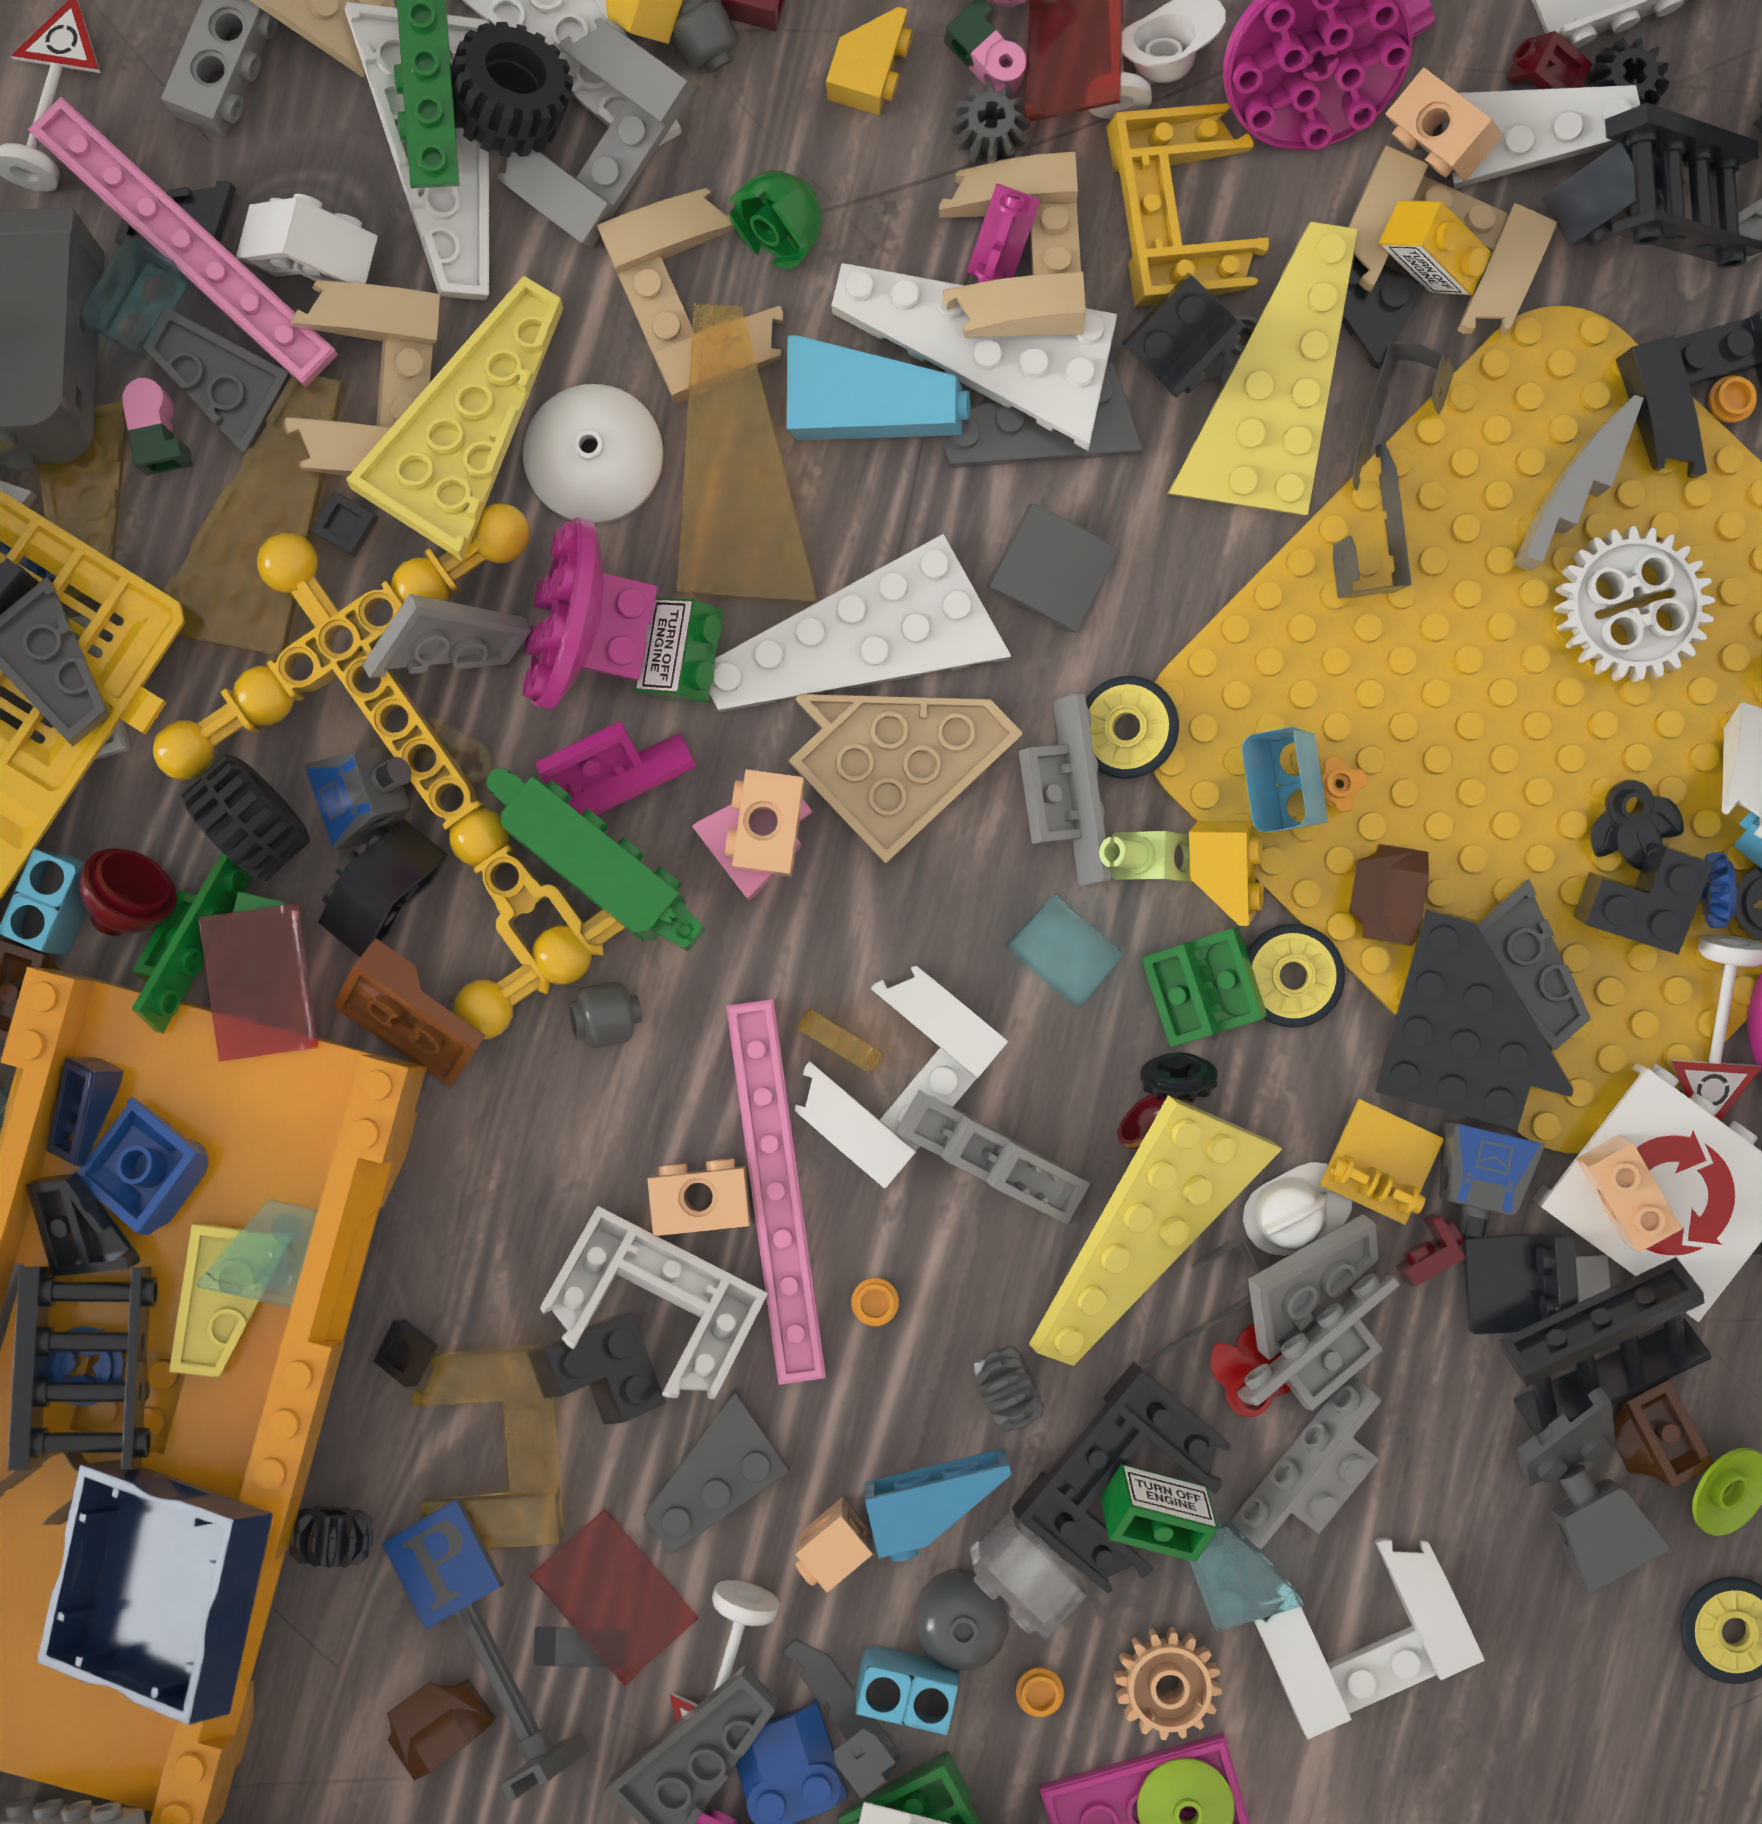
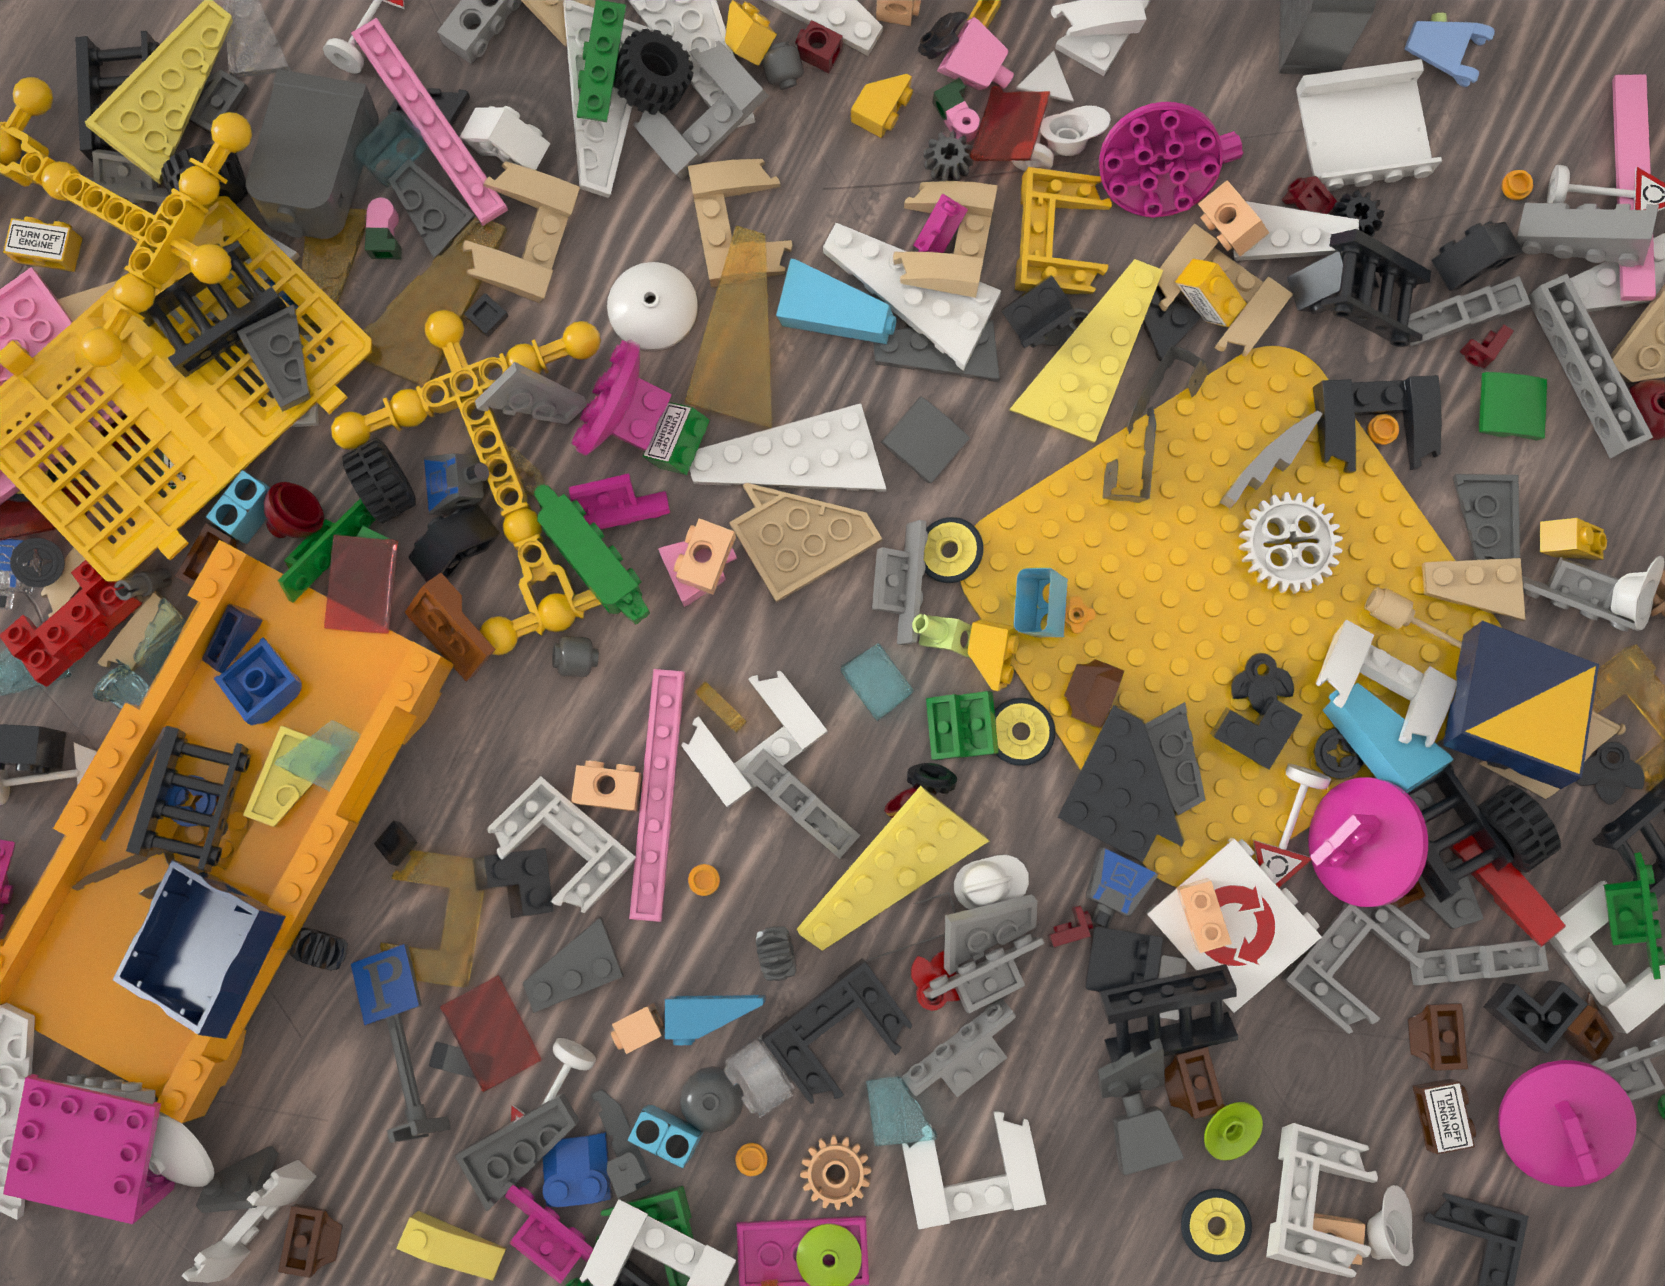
camera: 15 degrees right, 5 degrees down
(77, 1228) = (208, 711): black wing -> none
(436, 1725) = (355, 1088): reddish brown slope -> none
(452, 439) = (564, 277): light yellow wing -> none
(778, 215) = (802, 184): green cylinder -> none
(1158, 1513) = (854, 1056): green brick -> none
(1382, 1162) = (1052, 864): yellow hinge -> none
(1719, 892) = (1305, 735): blue gear -> none

